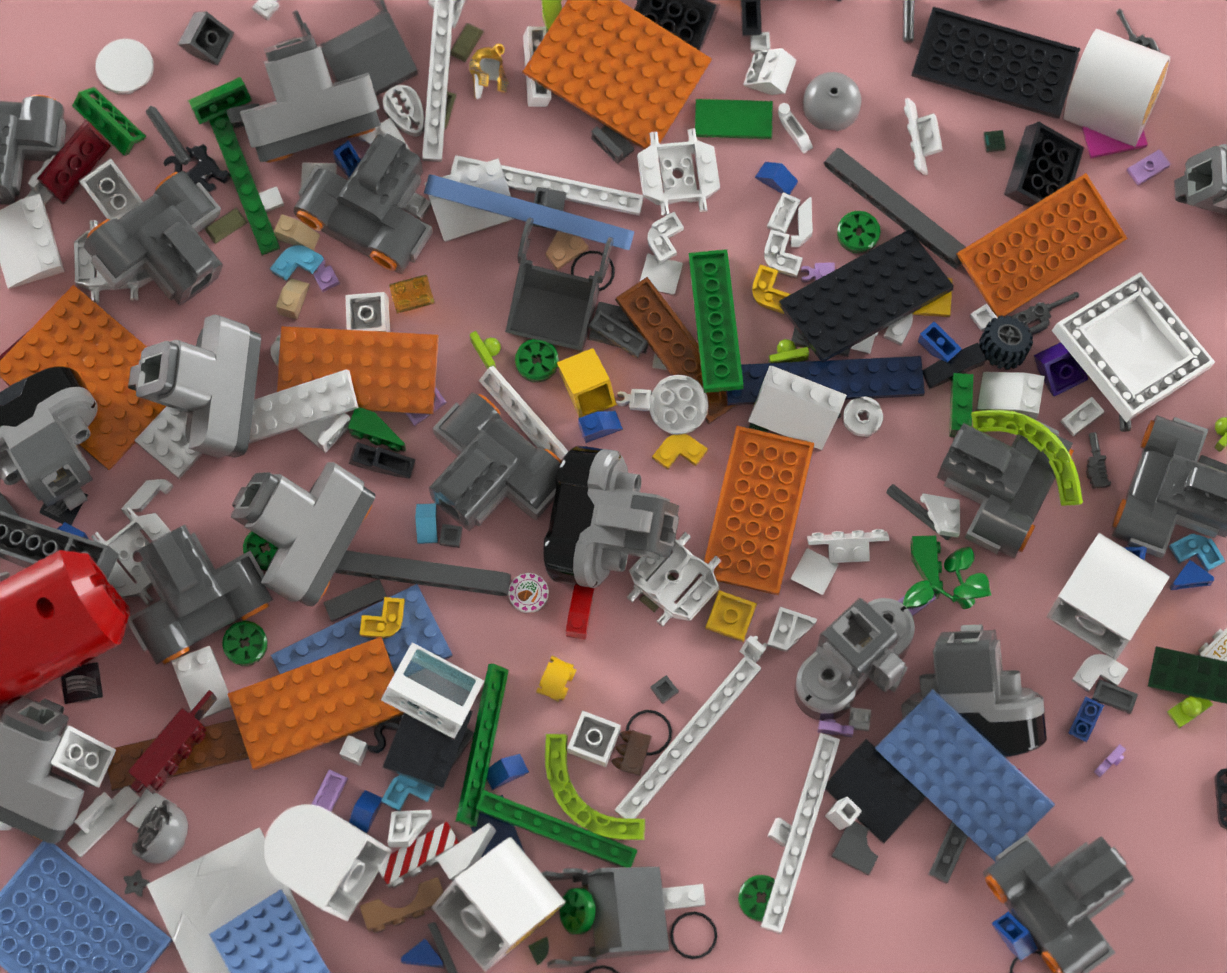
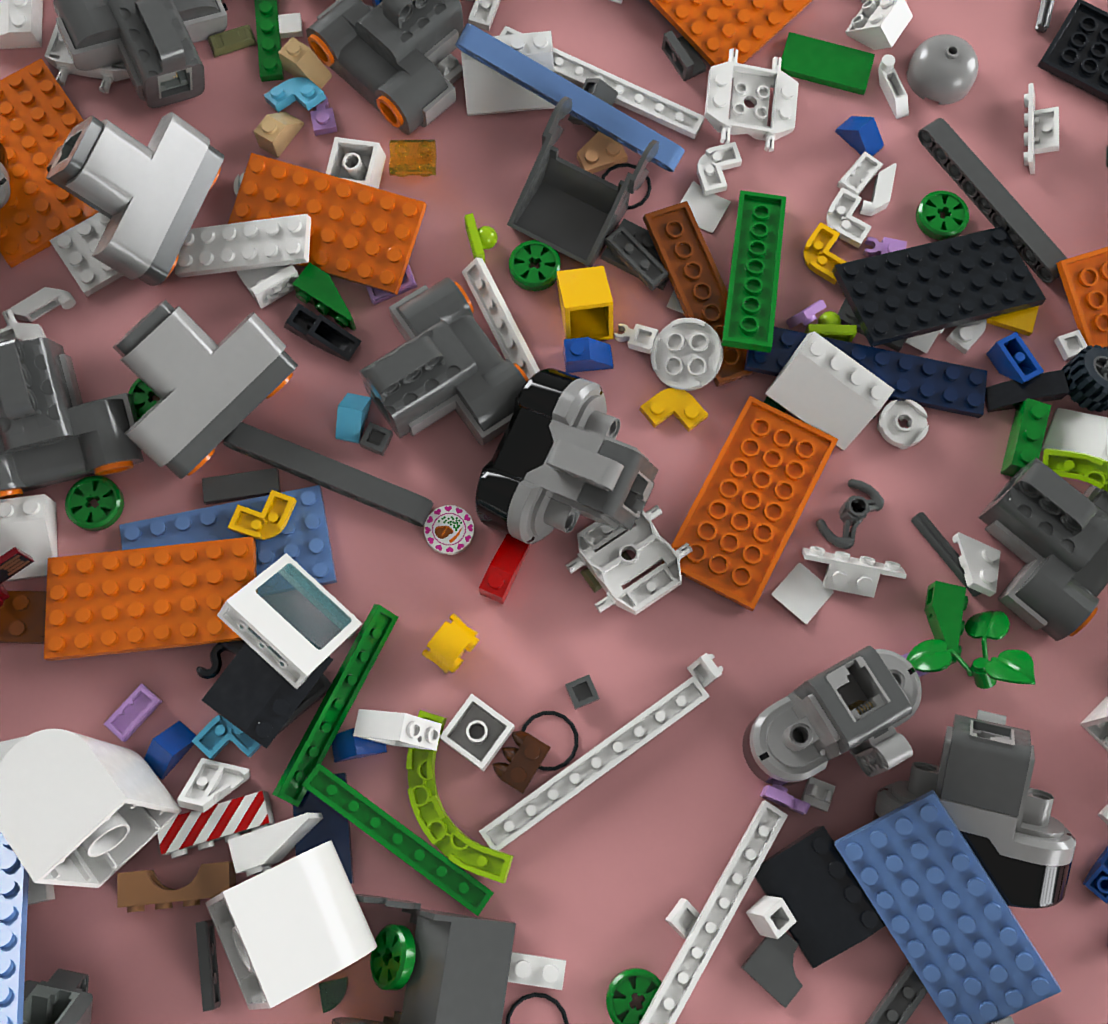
camera: 10 degrees right, 0 degrees up
(354, 750) = (178, 668): white brick -> none
(422, 955) = (179, 961): blue slope -> none
(535, 750) = (397, 729): none -> white window
(731, 616) = (687, 621): yellow plate -> none
(765, 348) = (806, 315): none -> lavender plate
(789, 629) = (755, 656): white wing -> none
(844, 494) = (852, 514): none -> dark grey piece

